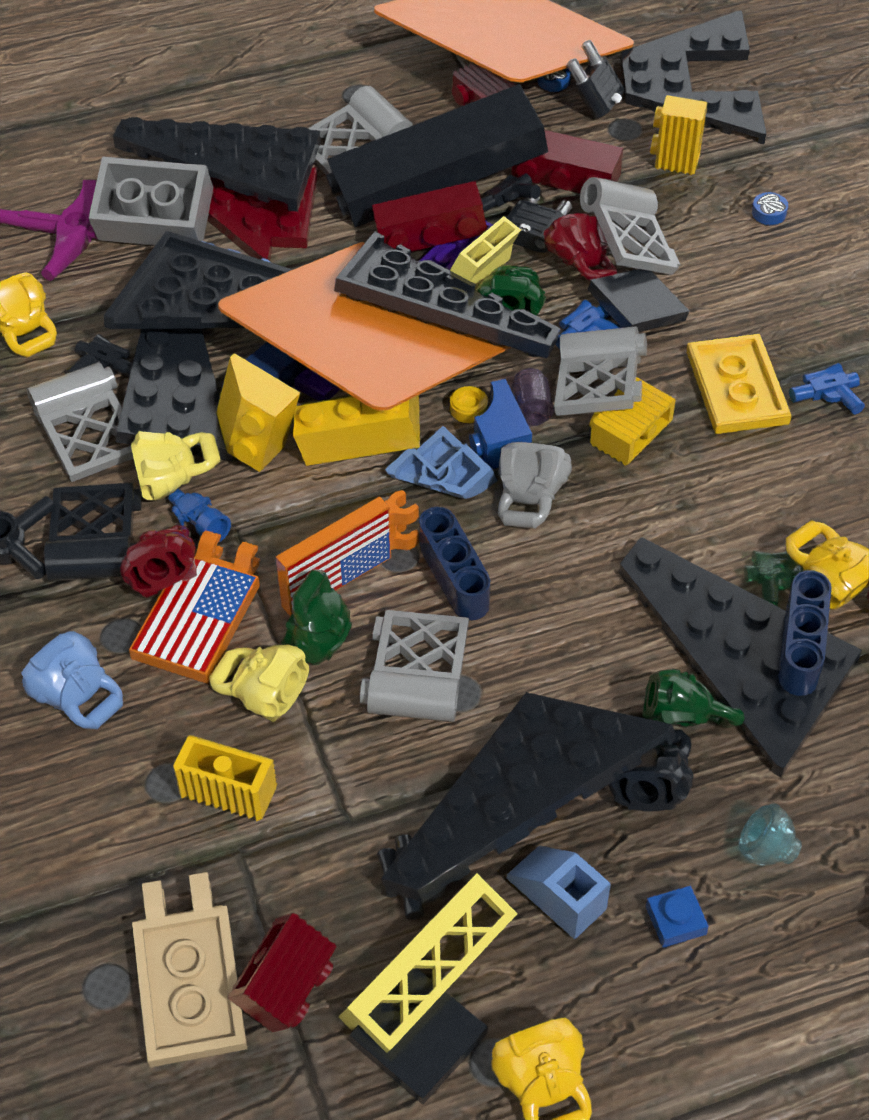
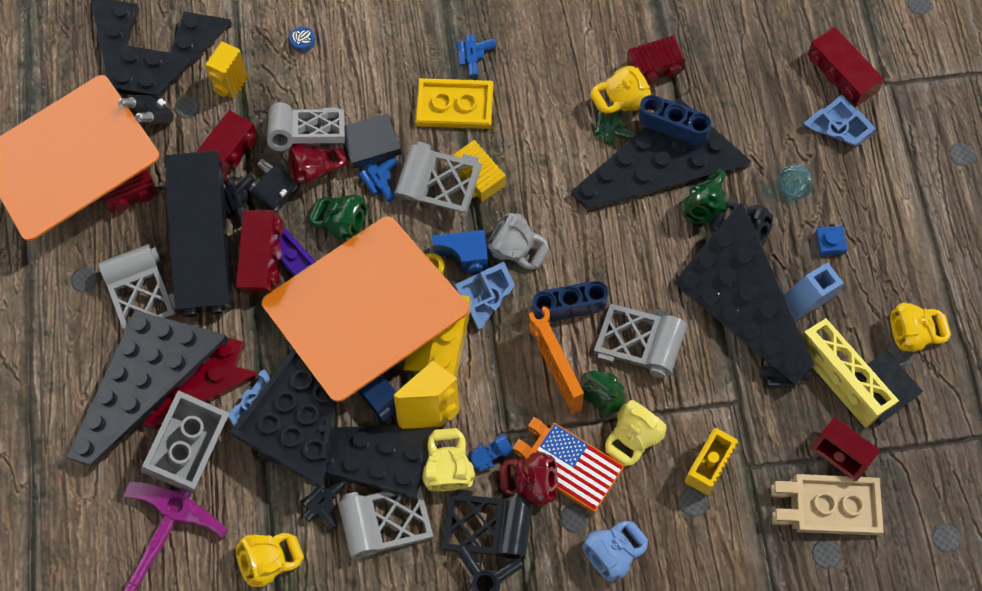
camera: 75 degrees left, 15 degrees up
(440, 297) = (347, 262): black wing -> none
(487, 252) = (308, 224): light yellow piece -> none
(533, 396) = (441, 223): clear purple brick -> none

